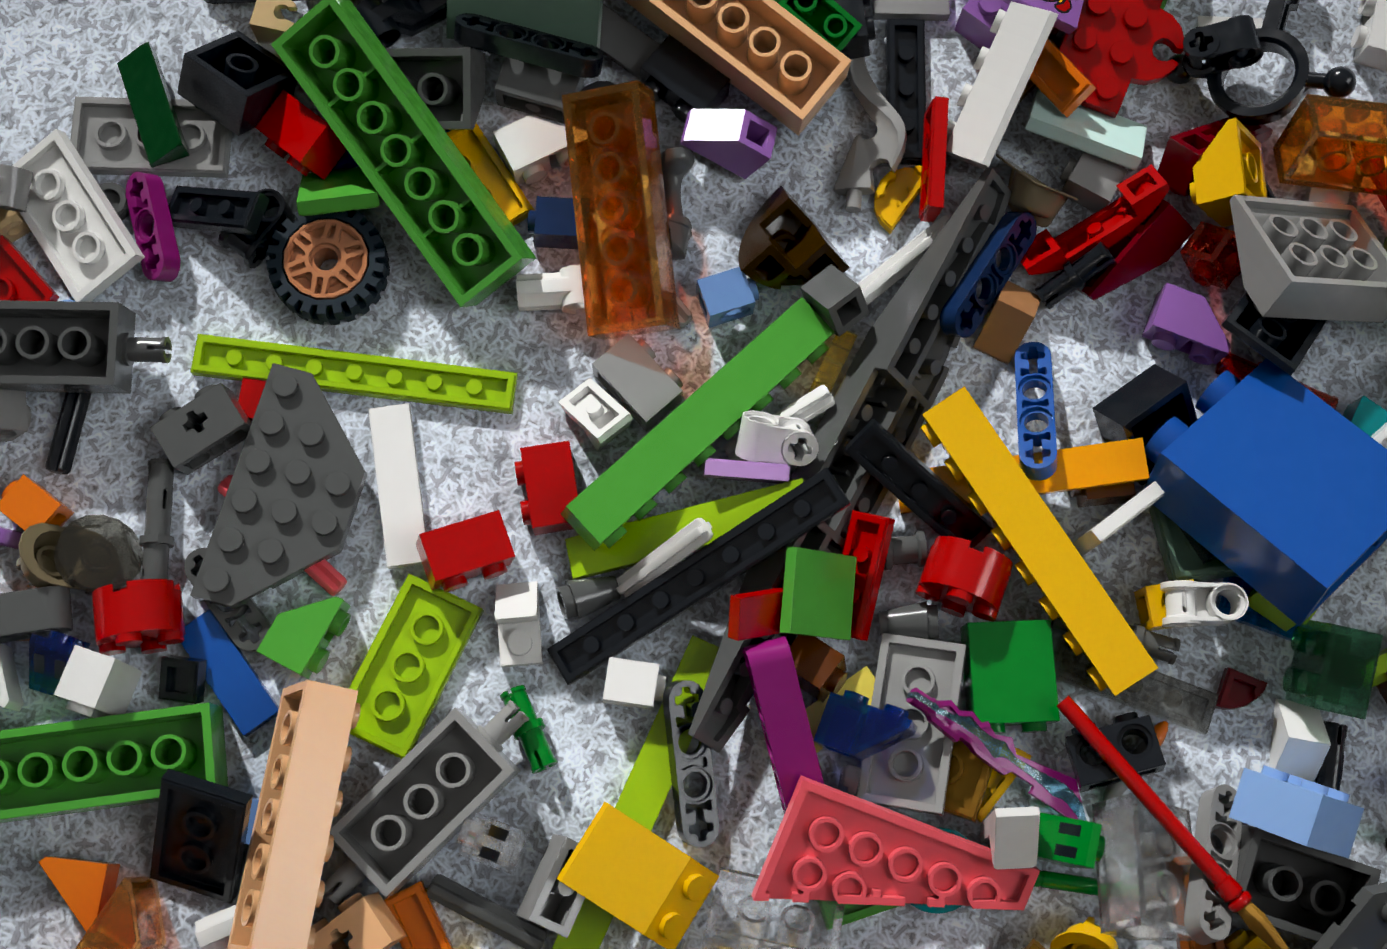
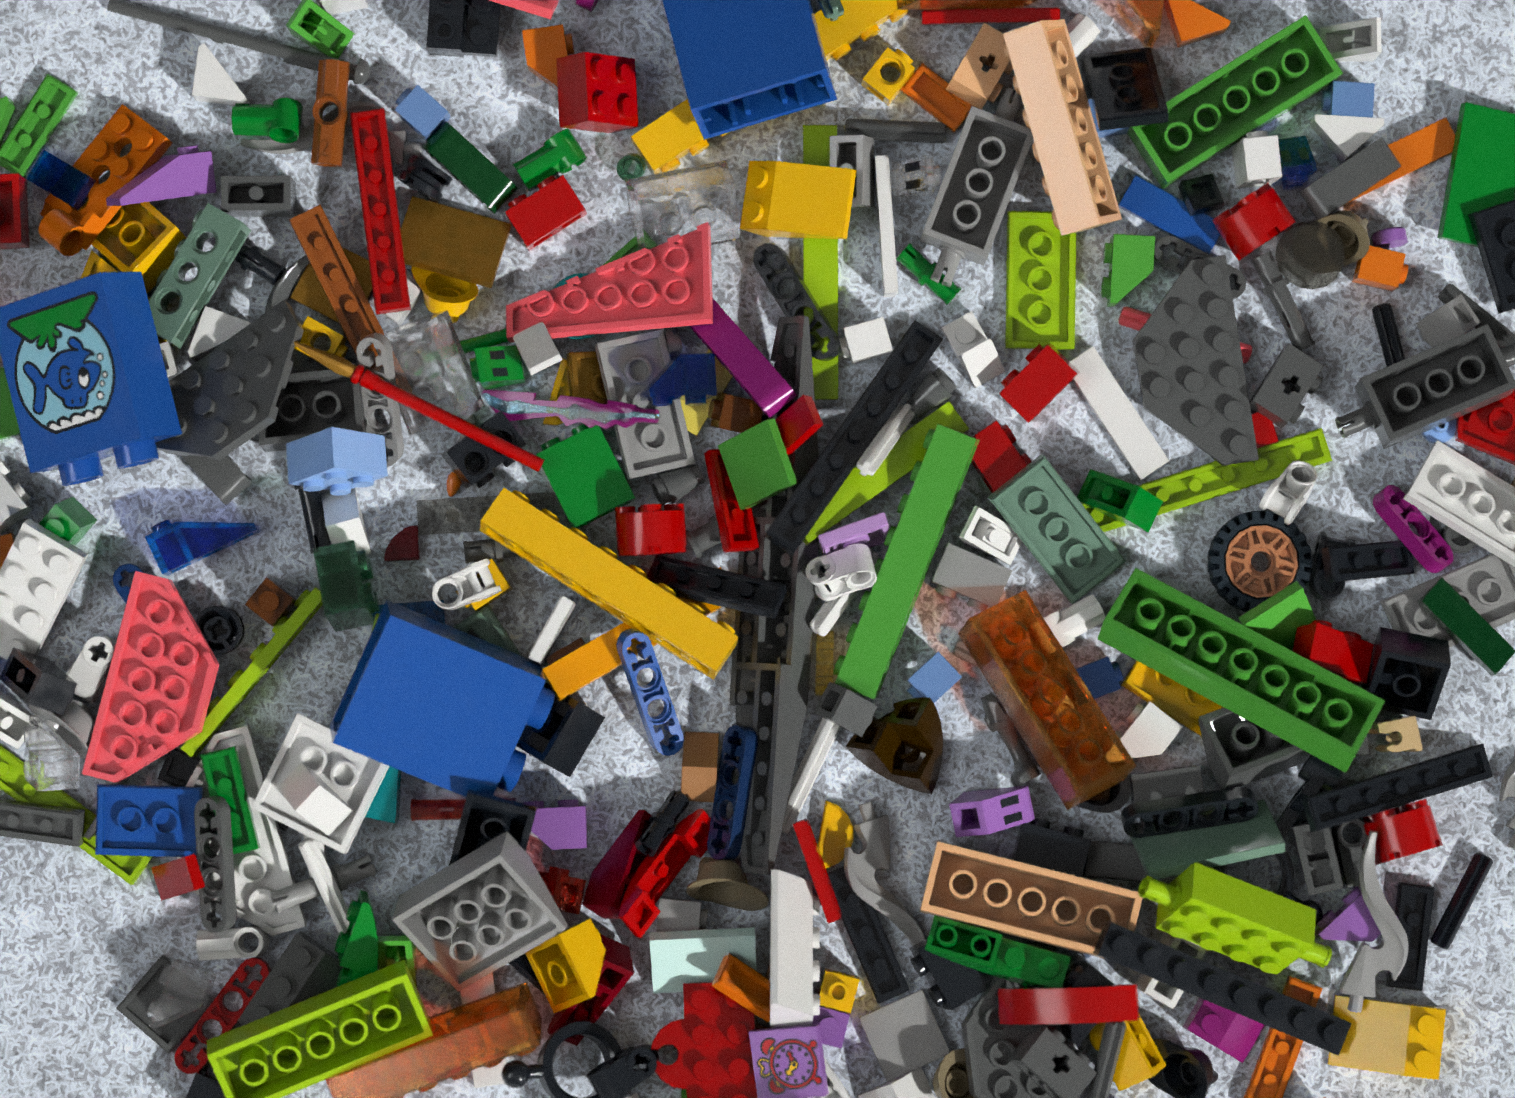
camera: 160 degrees right, 10 degrees up
(256, 312) = (1290, 490): none -> white piece
(442, 385) = (1119, 500): none -> green slope
(523, 389) = (1056, 529): none -> sand green tile
(550, 805) = (885, 226): none -> white tile
(961, 43) = (838, 990): none -> yellow brick

